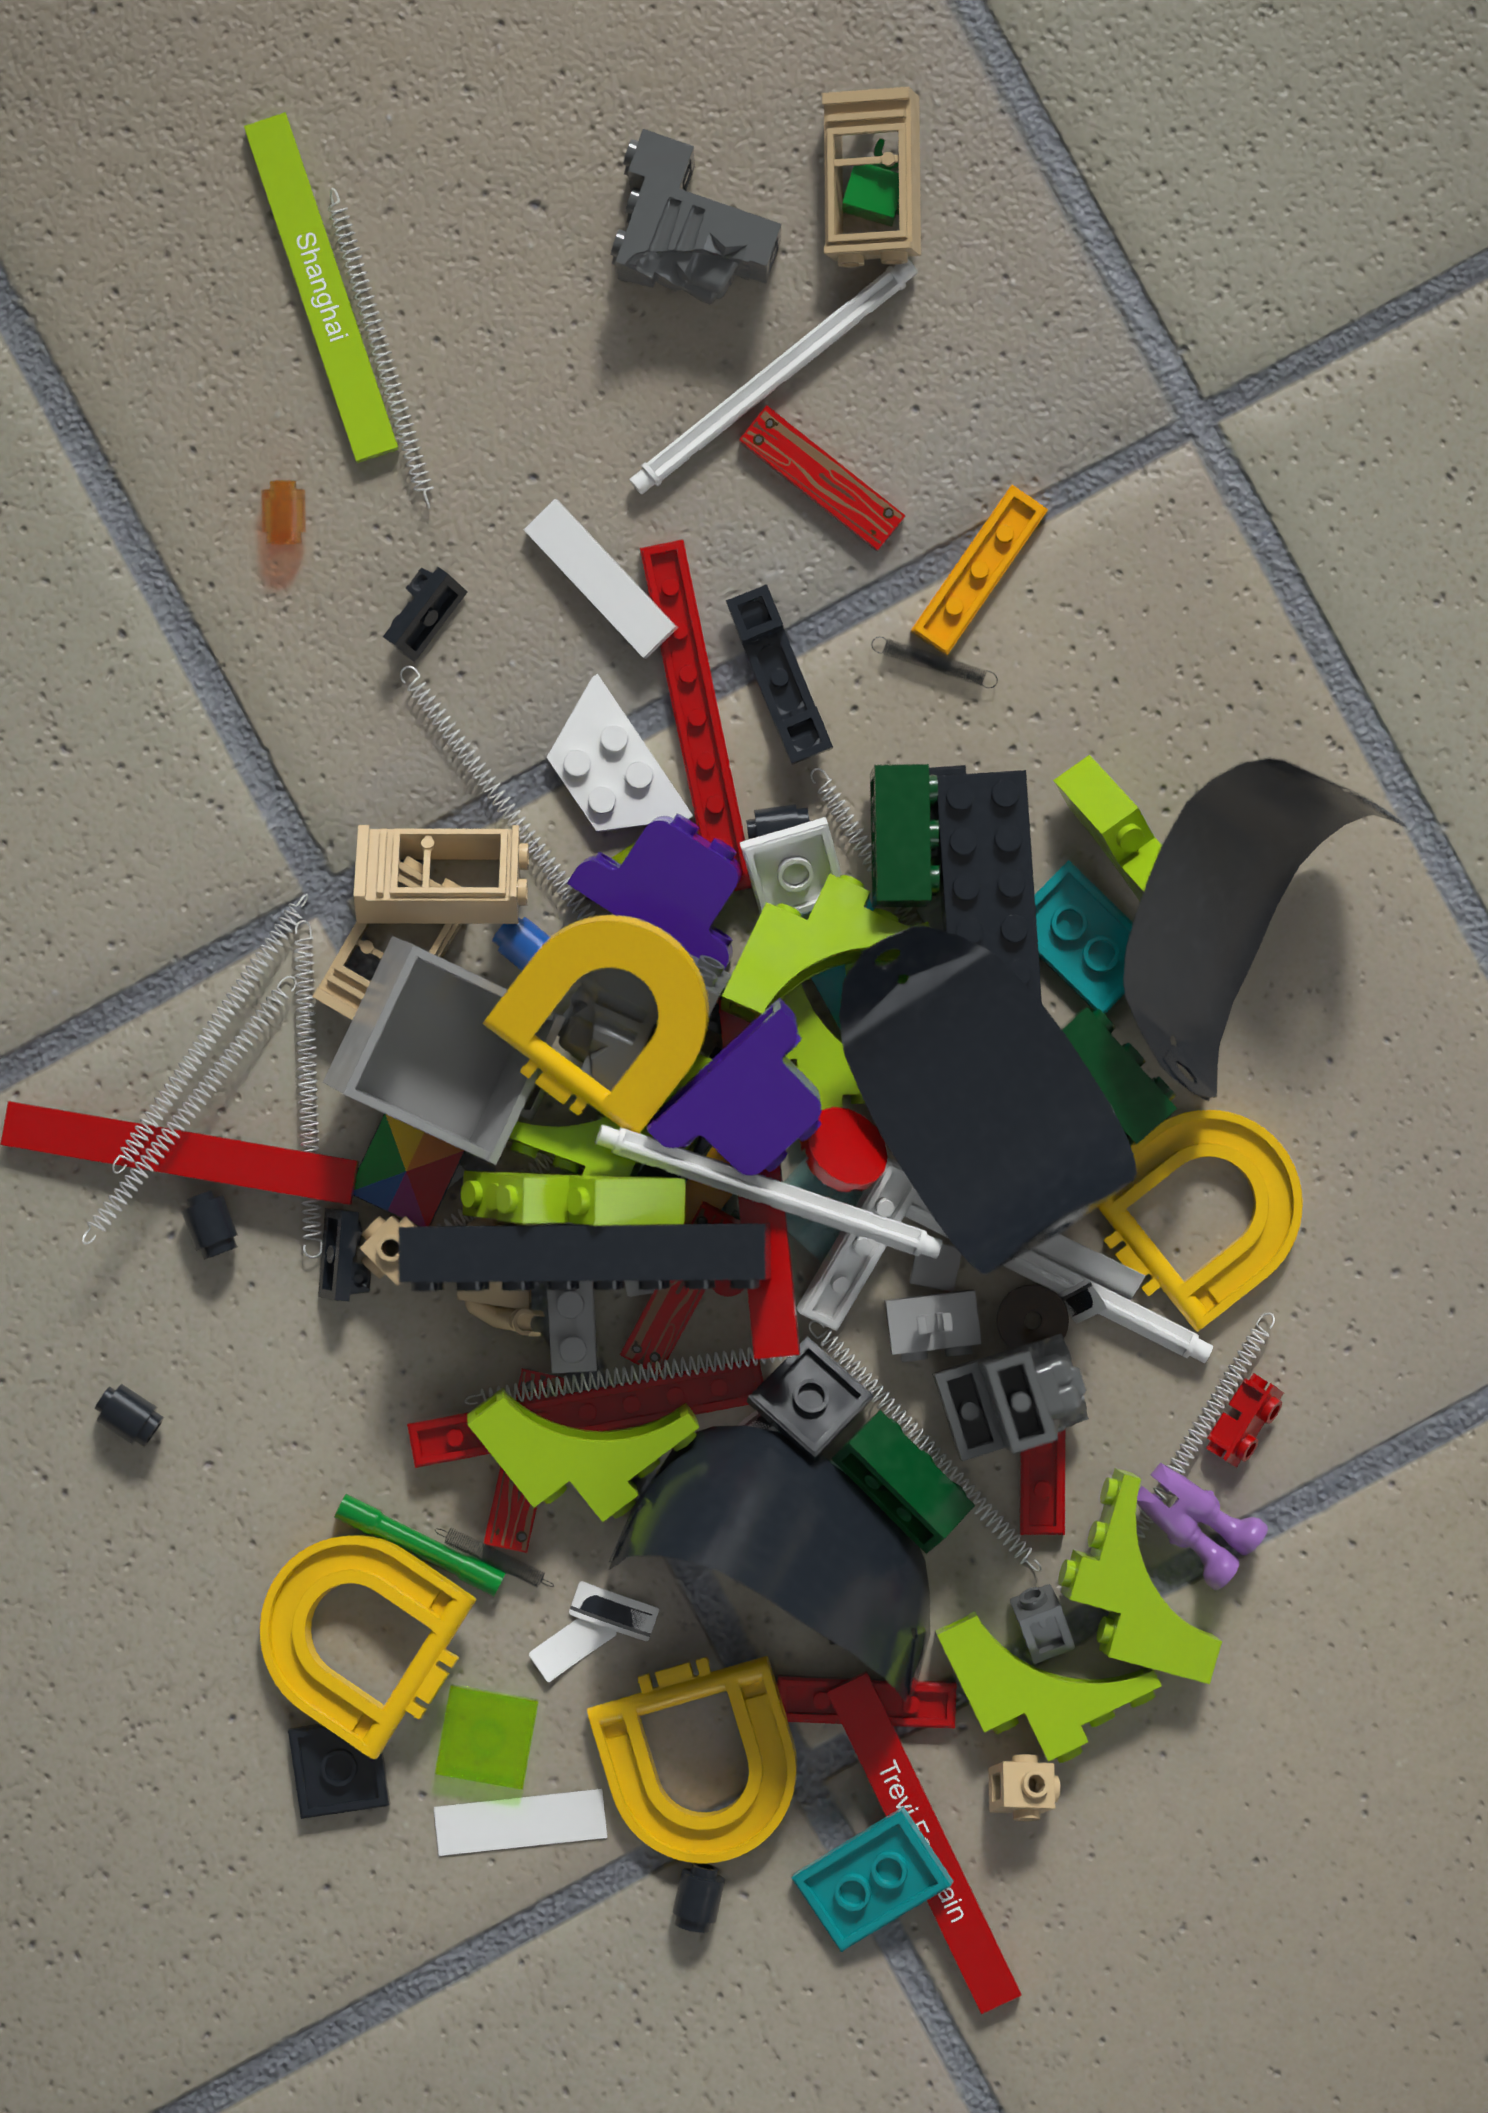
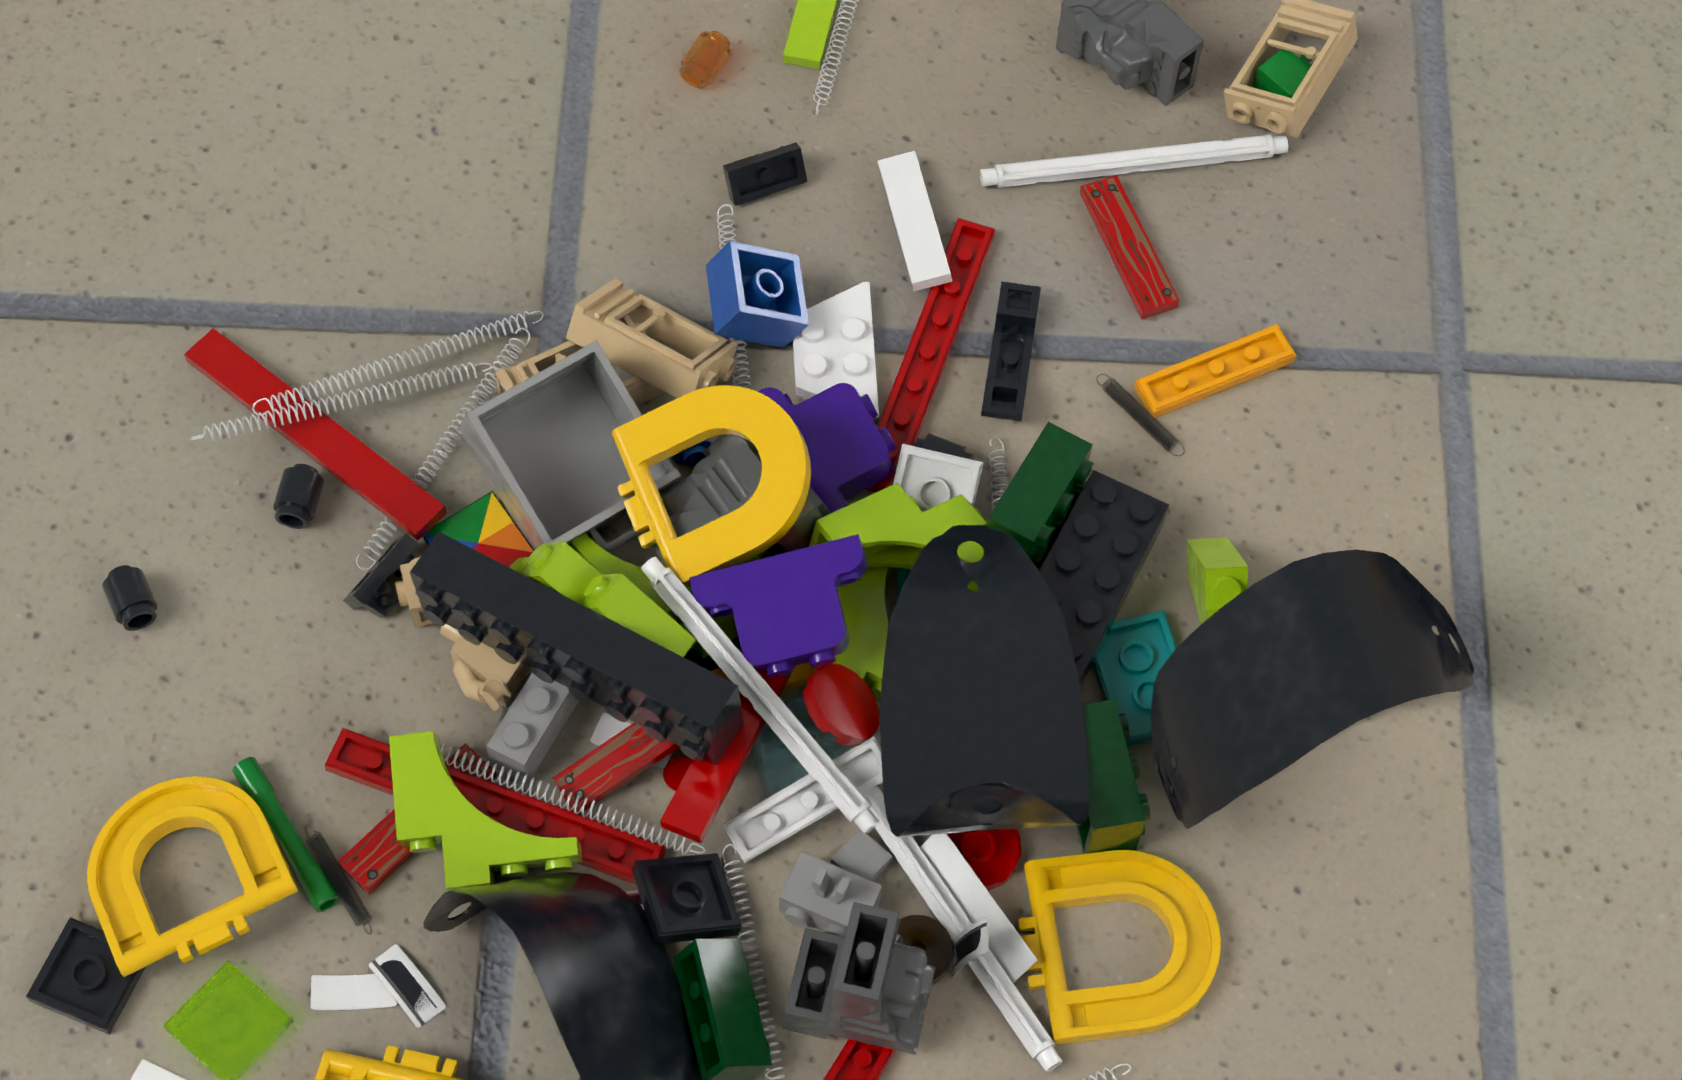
camera: 30 degrees right, 25 degrees down
(507, 766) = (757, 294): none -> blue brick

